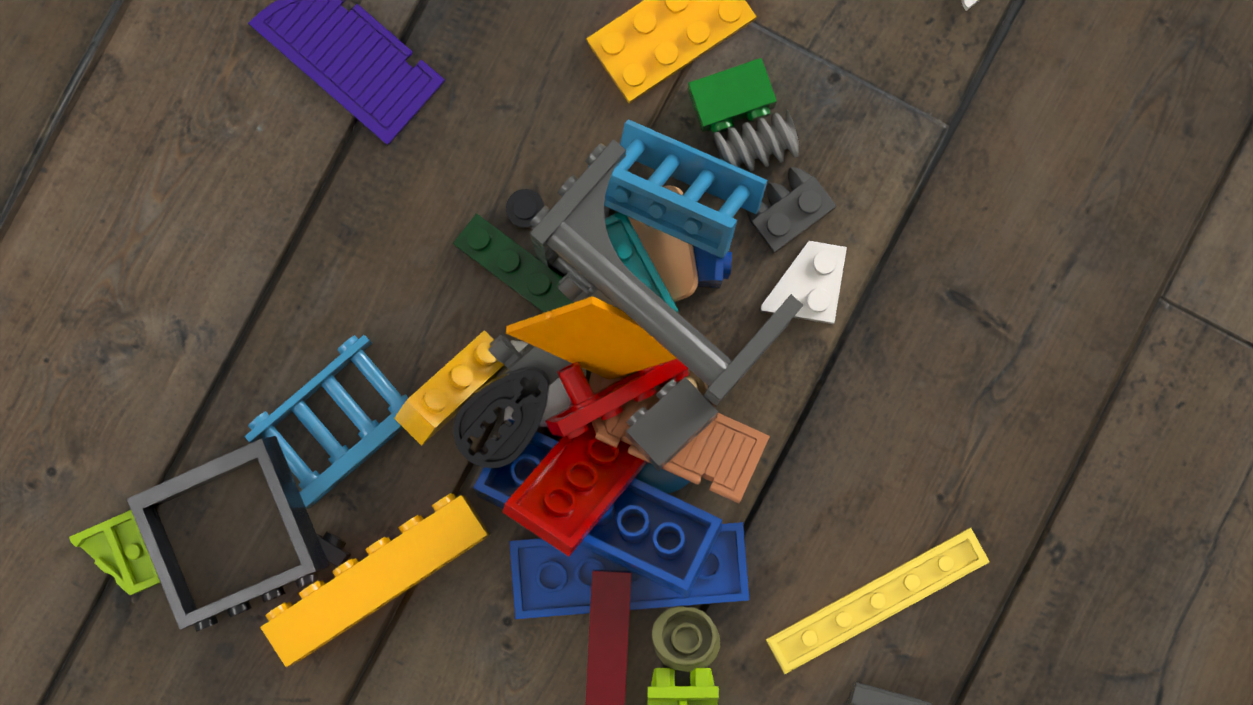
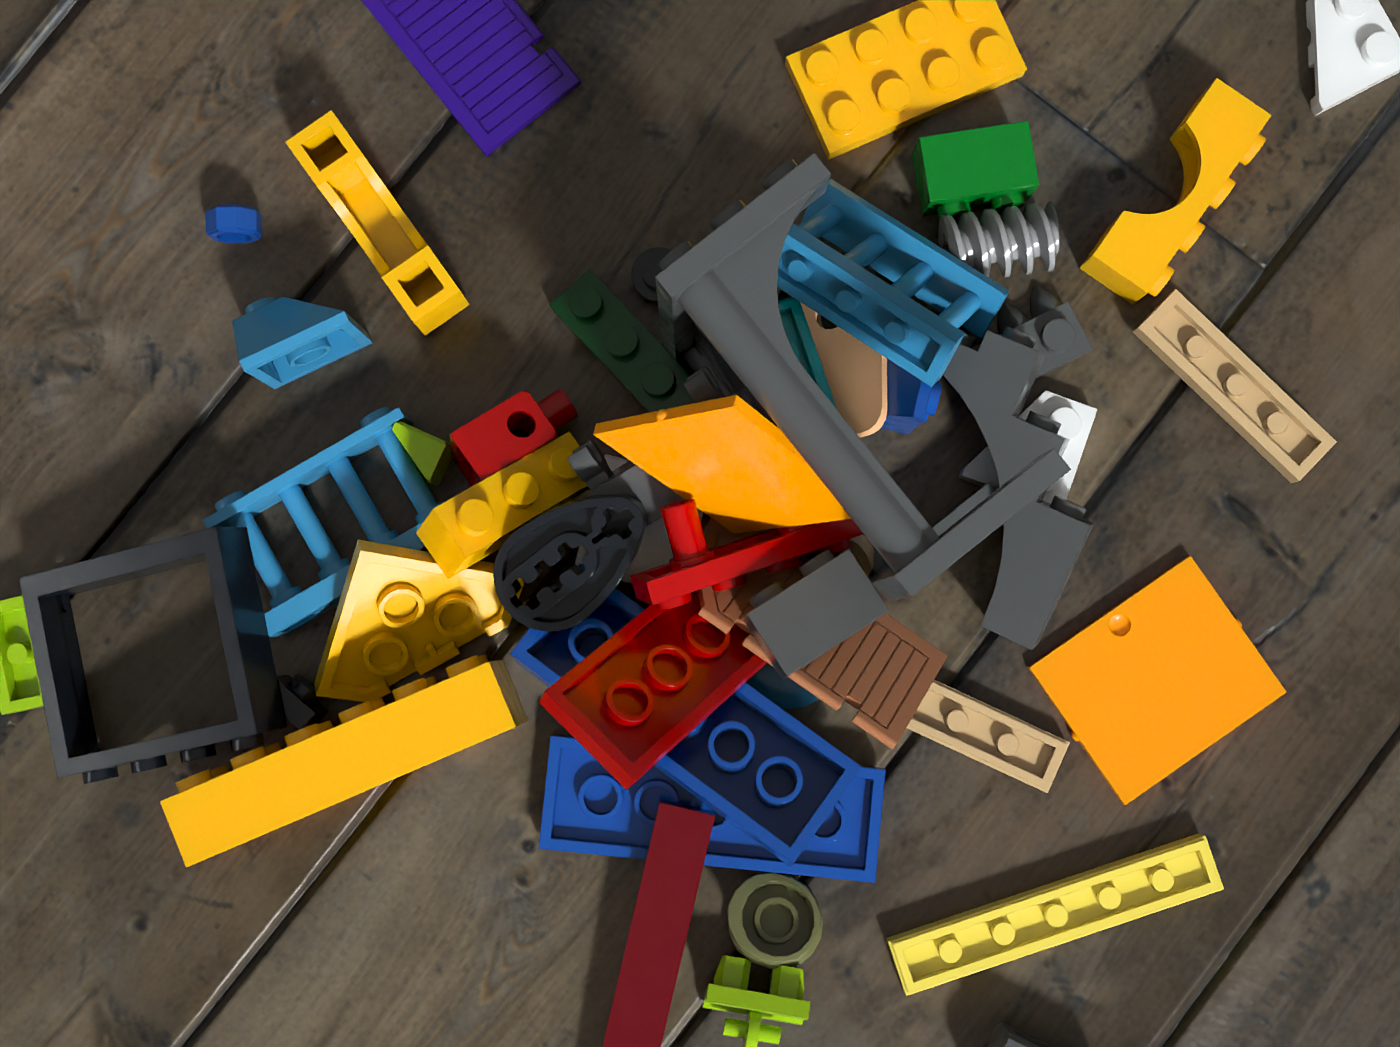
camera: 10 degrees right, 0 degrees up
(222, 226) = (233, 223): none -> blue tile
(281, 298) = (293, 338): none -> dark azure slope
(325, 209) = (377, 223): none -> yellow arch
(387, 360) = (427, 451): none -> lime slope
(395, 478) = (403, 619): none -> yellow plate
(433, 351) = (487, 441): none -> red torso
(808, 486) = (989, 736): none -> tan tile
(818, 344) = (1043, 537): none -> dark grey arch
(894, 44) = (1210, 142): none -> yellow arch
(921, 427) = (1156, 680): none -> light orange piece
(938, 214) = (1234, 387): none -> tan plate

